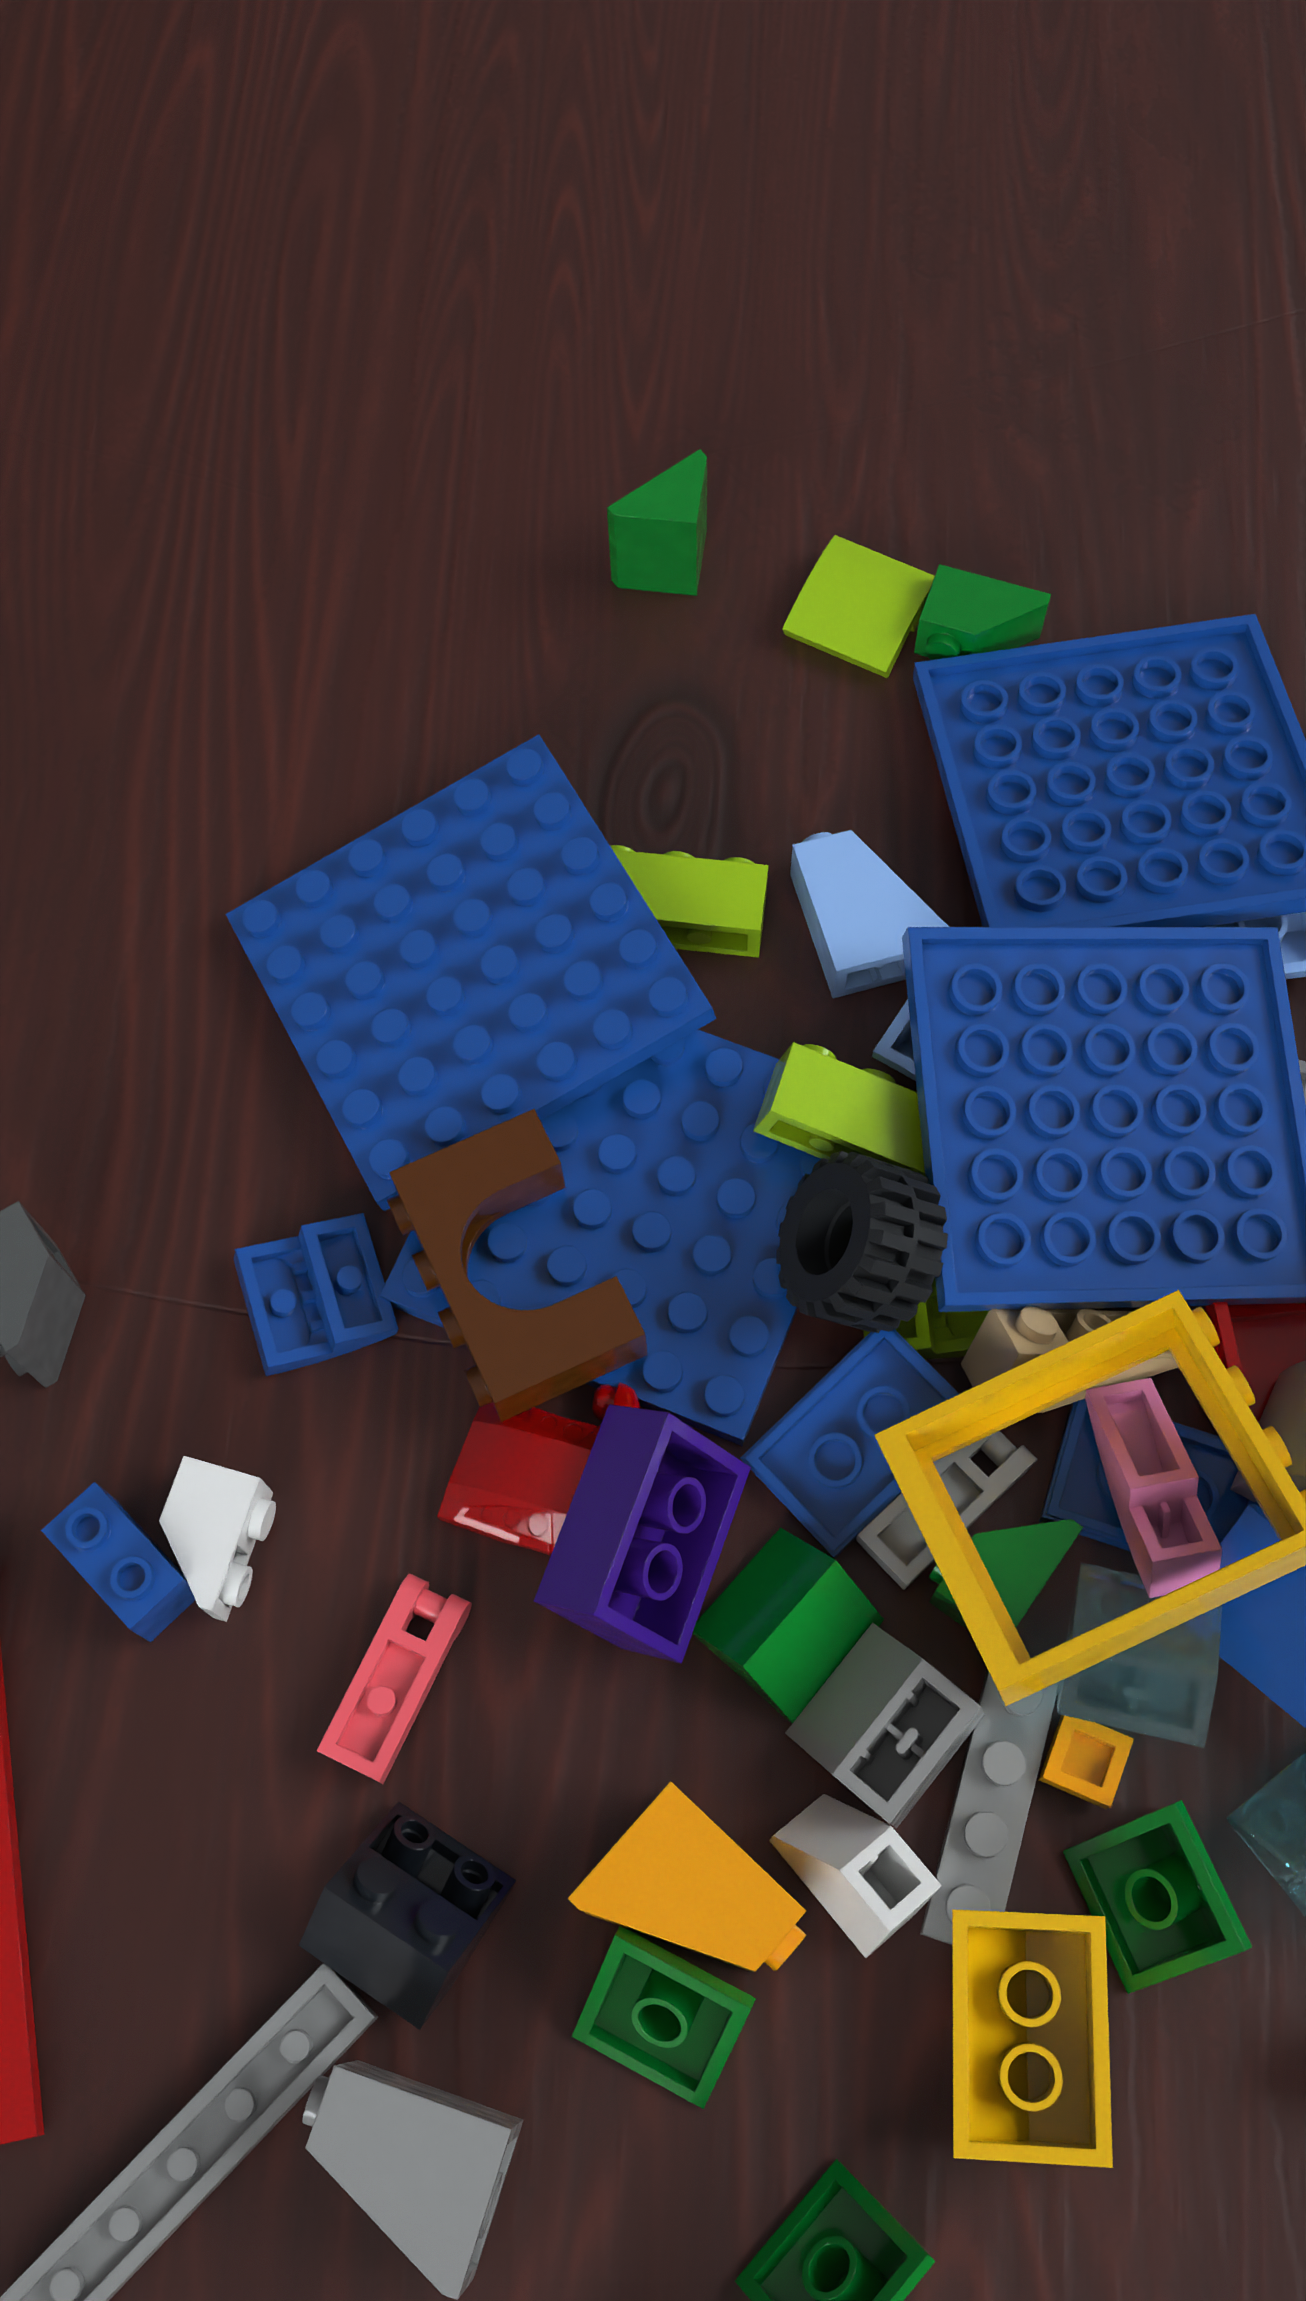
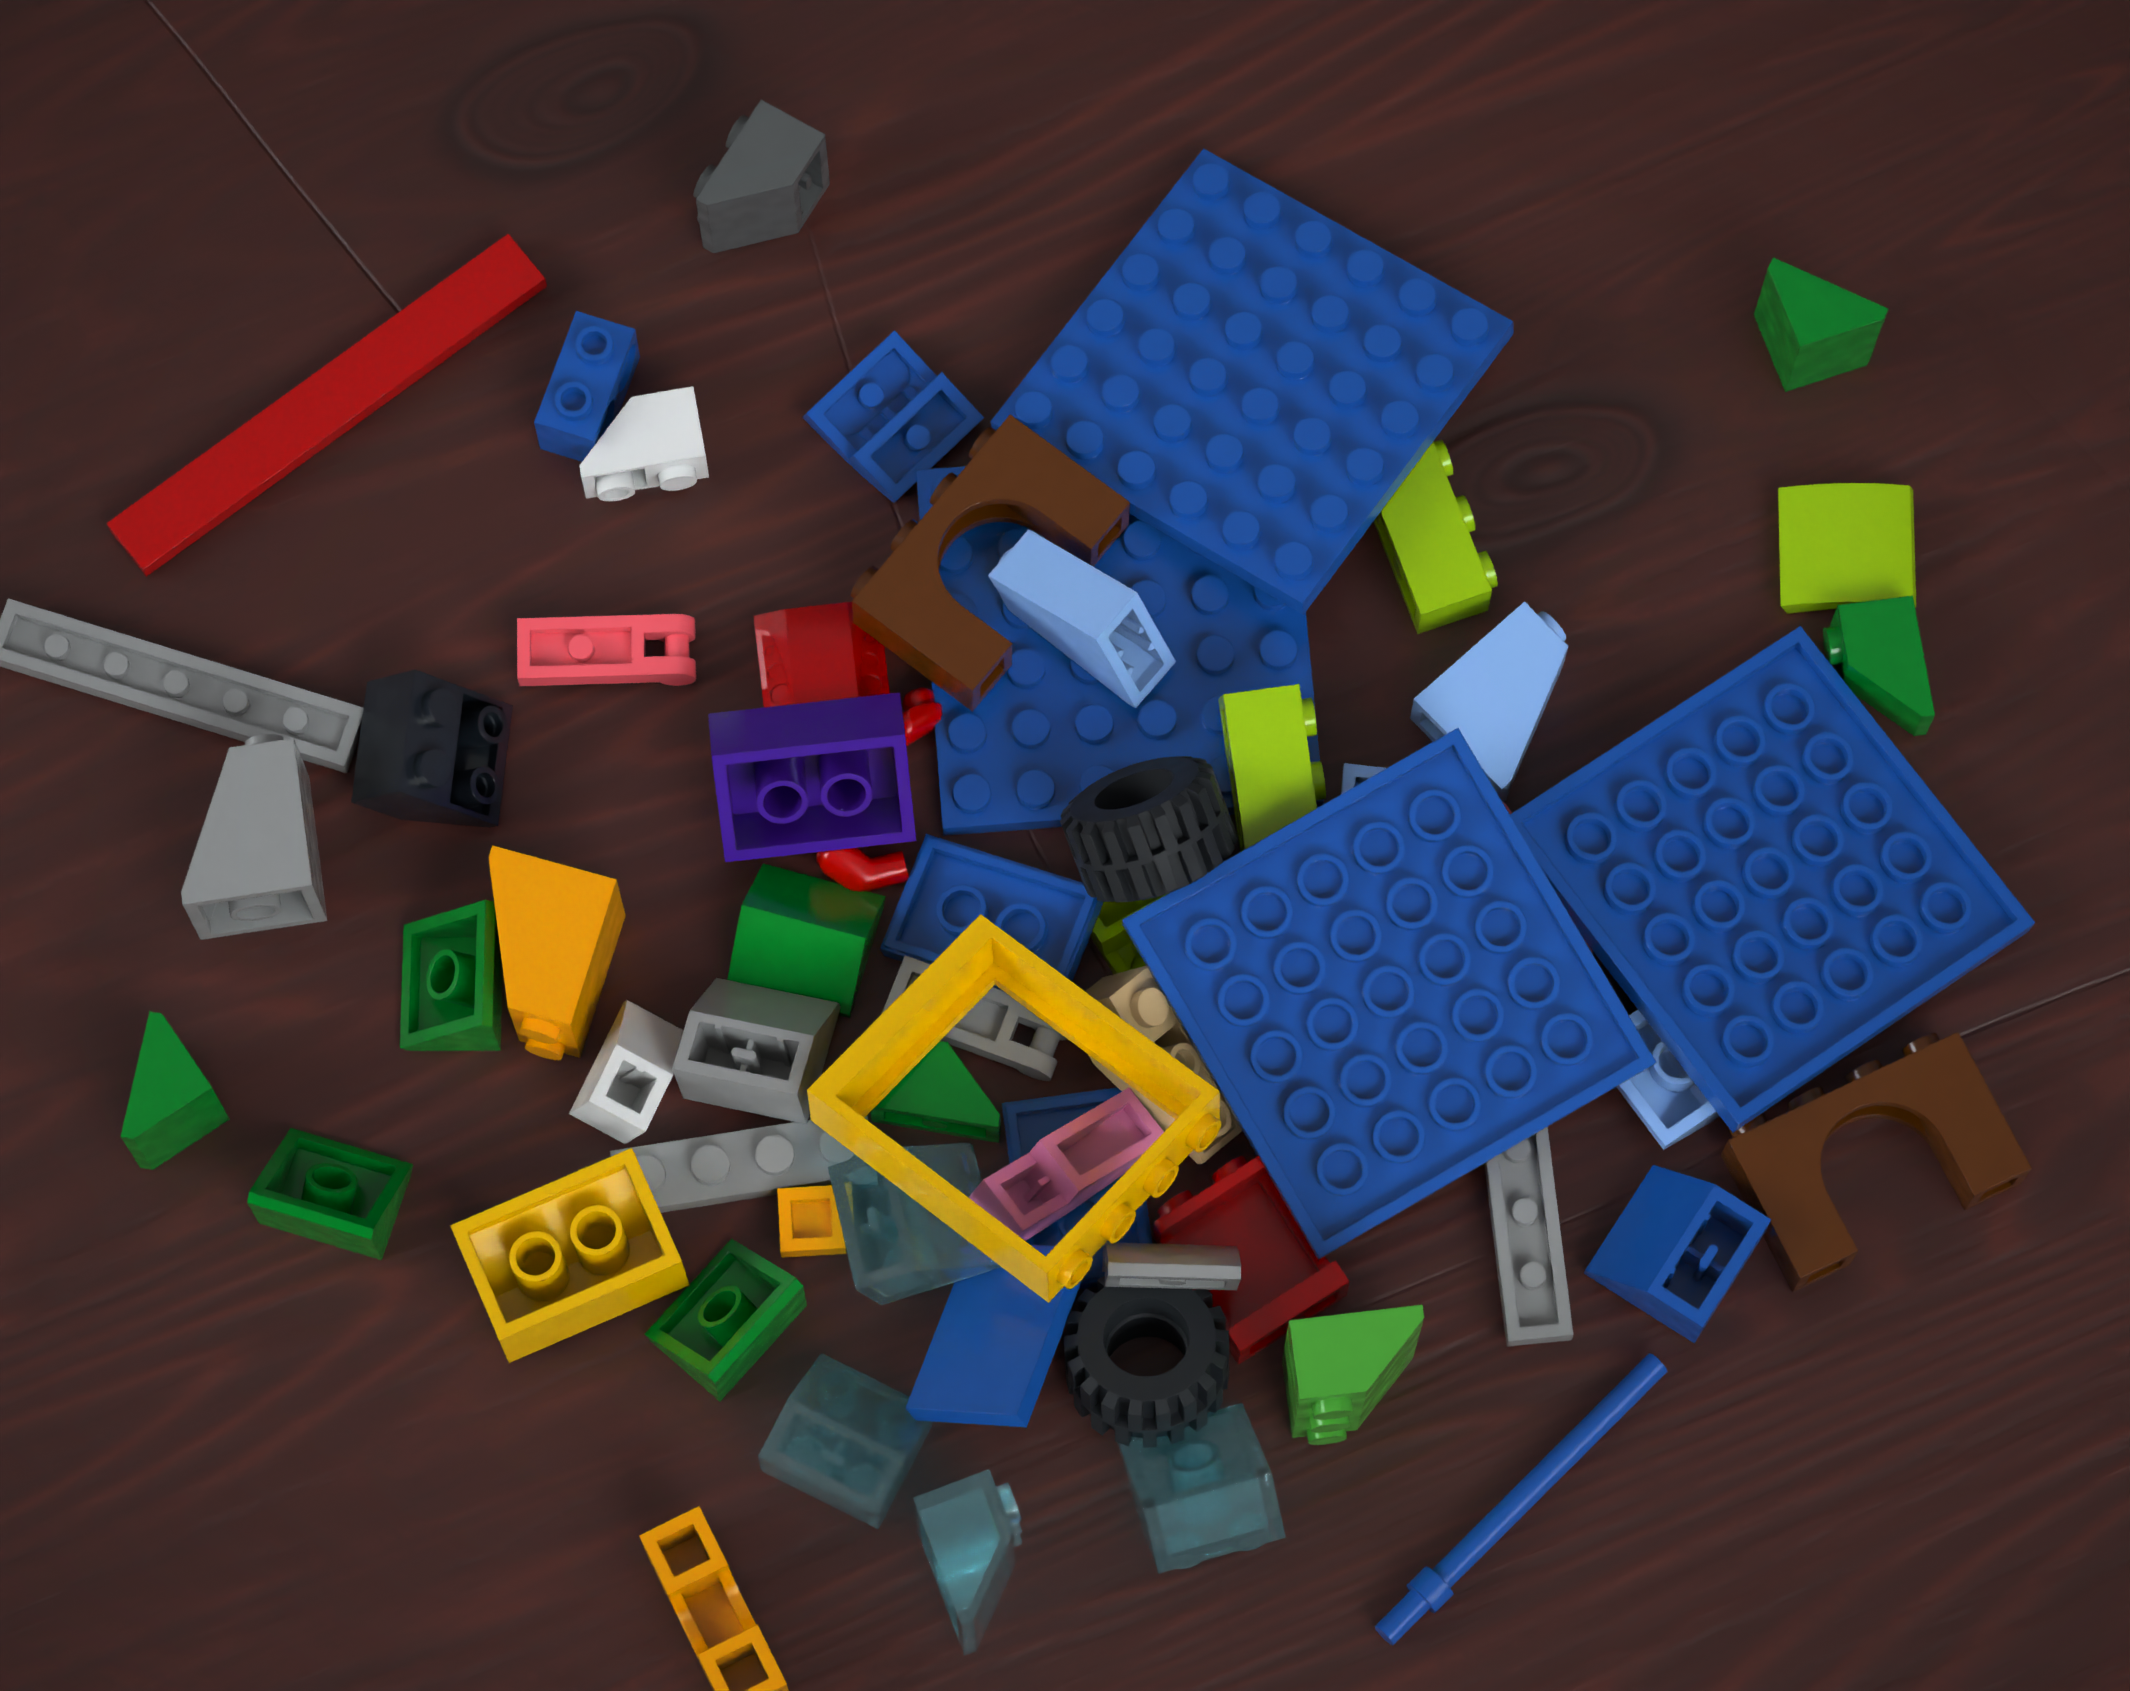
camera: 60 degrees right, 5 degrees up
(612, 1205) = (1084, 616): none -> light blue slope
(749, 1535) = (861, 873): none -> red arm

